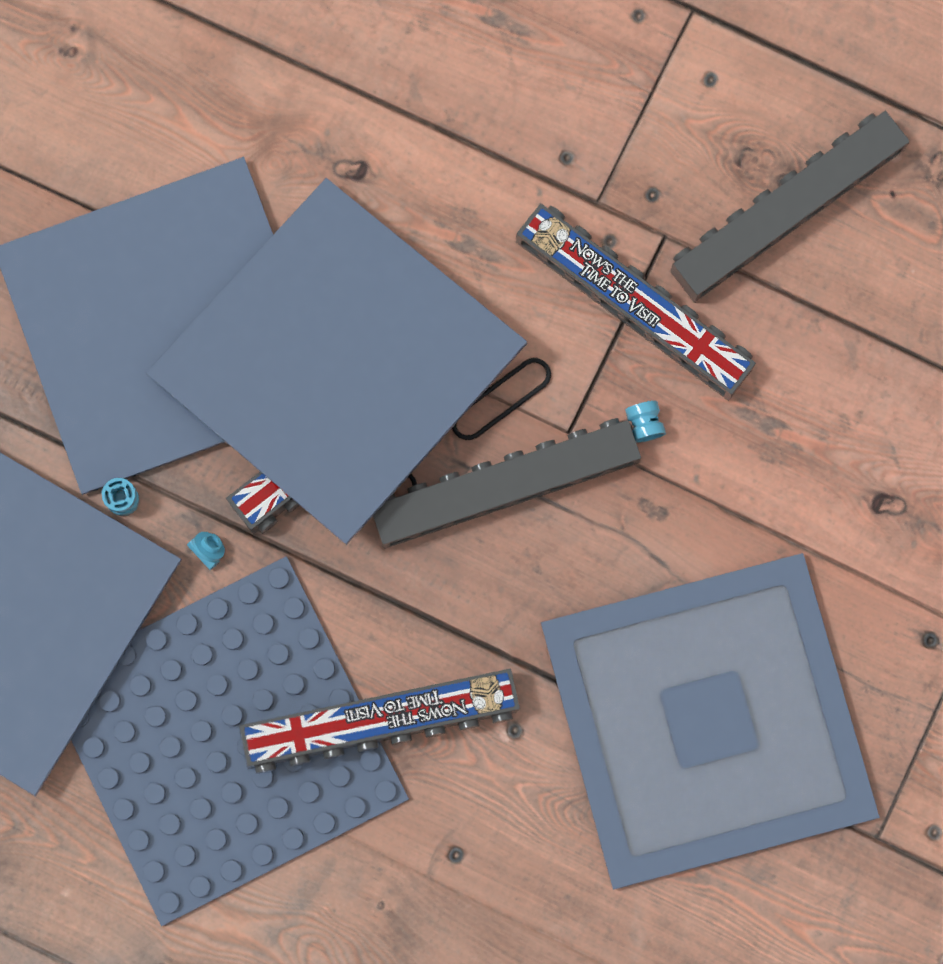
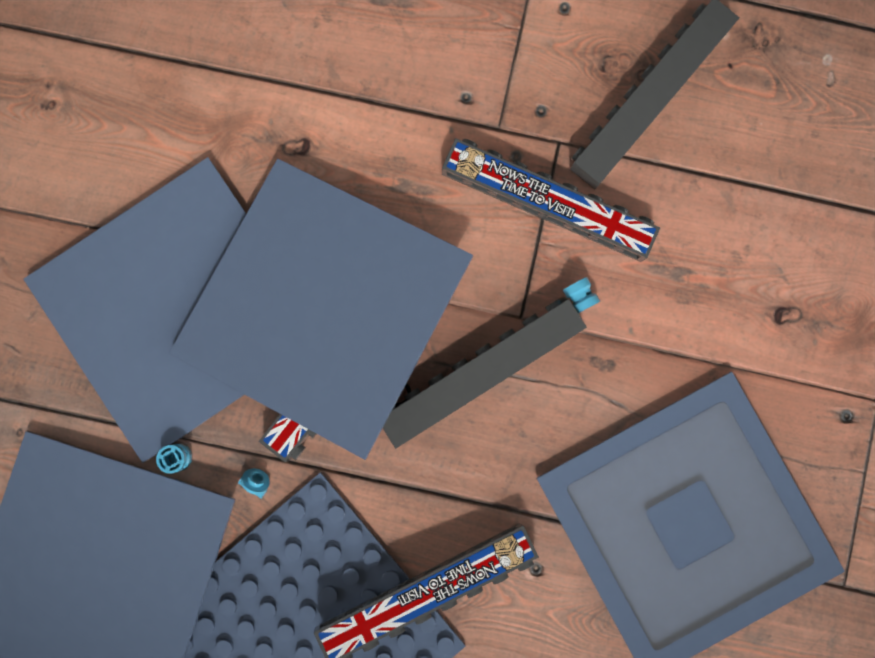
camera: 10 degrees left, 5 degrees up
(514, 406) = (474, 305): black piece -> none

